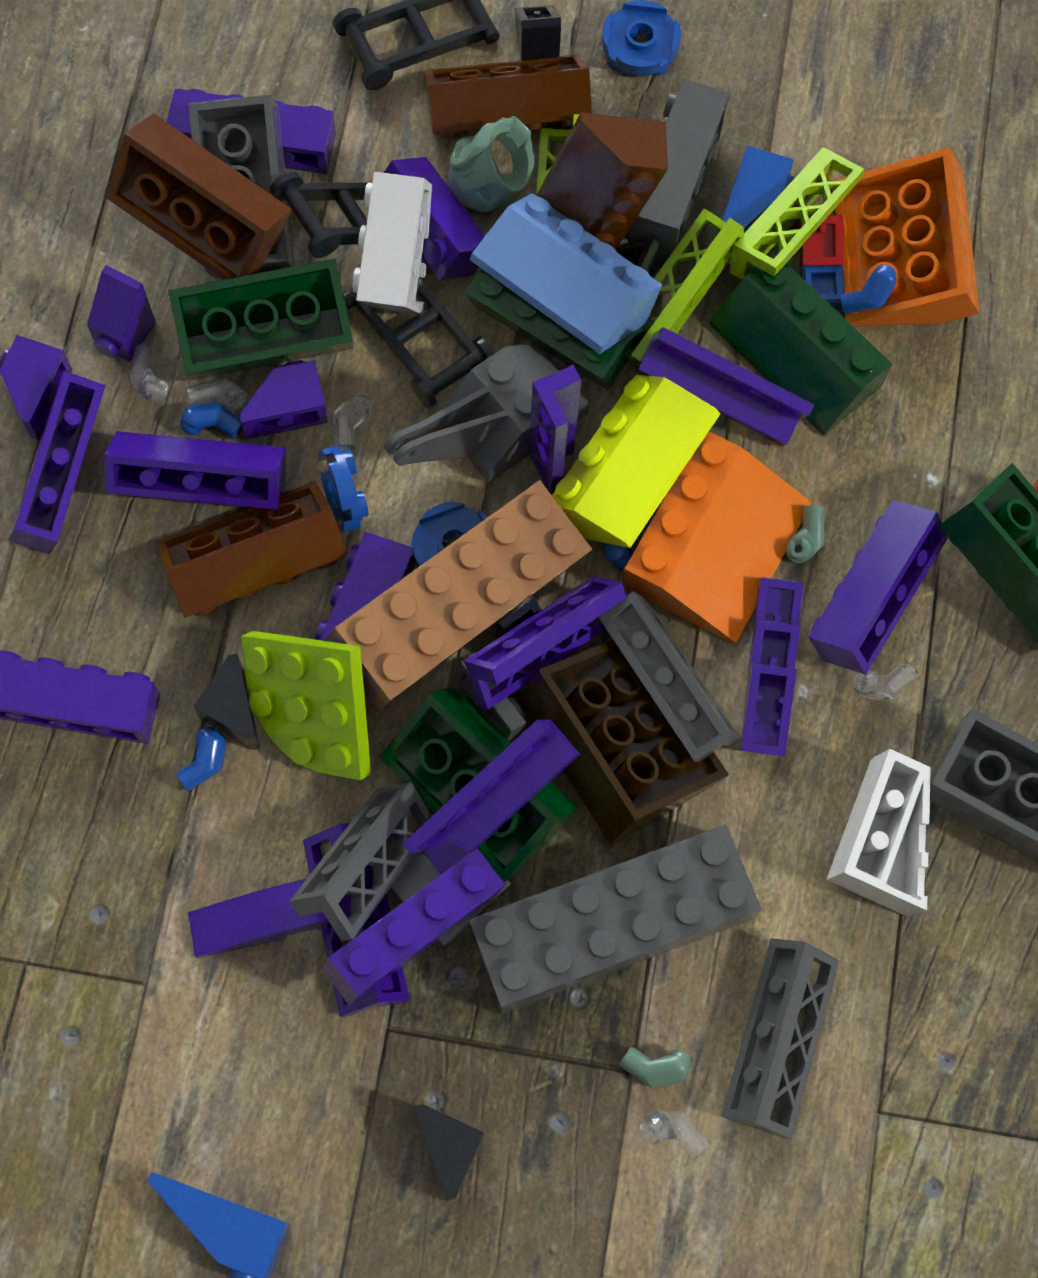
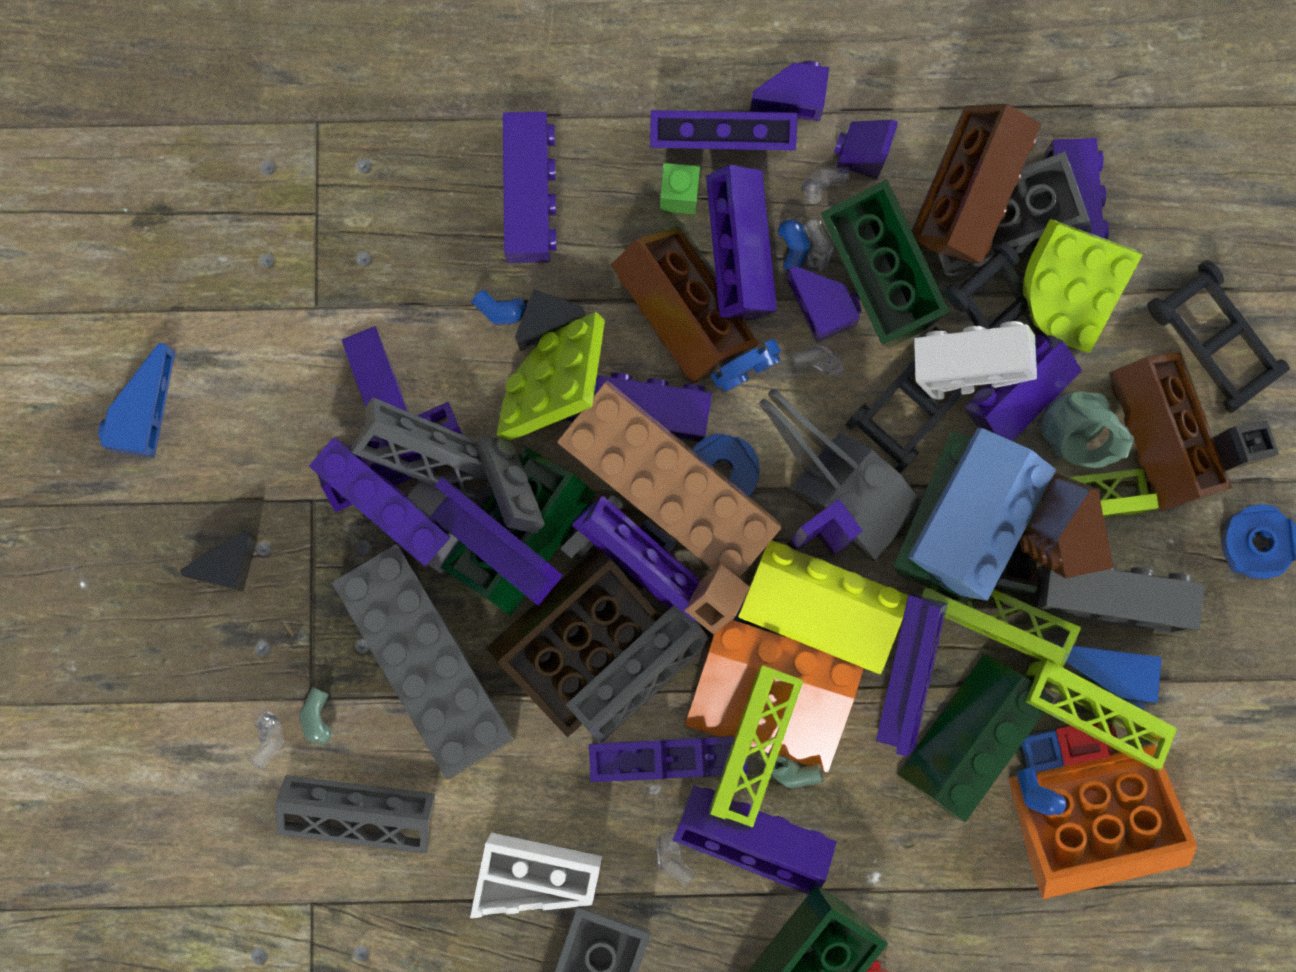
camera: 80 degrees right, 10 degrees up
(113, 525) = (679, 188): none -> bright green brick
(331, 133) = (1075, 283): none -> lime plate
(424, 770) = (509, 484): none -> dark grey plate
(607, 560) = (717, 599): none -> medium nougat brick
(775, 562) = (742, 742): none -> lime fence

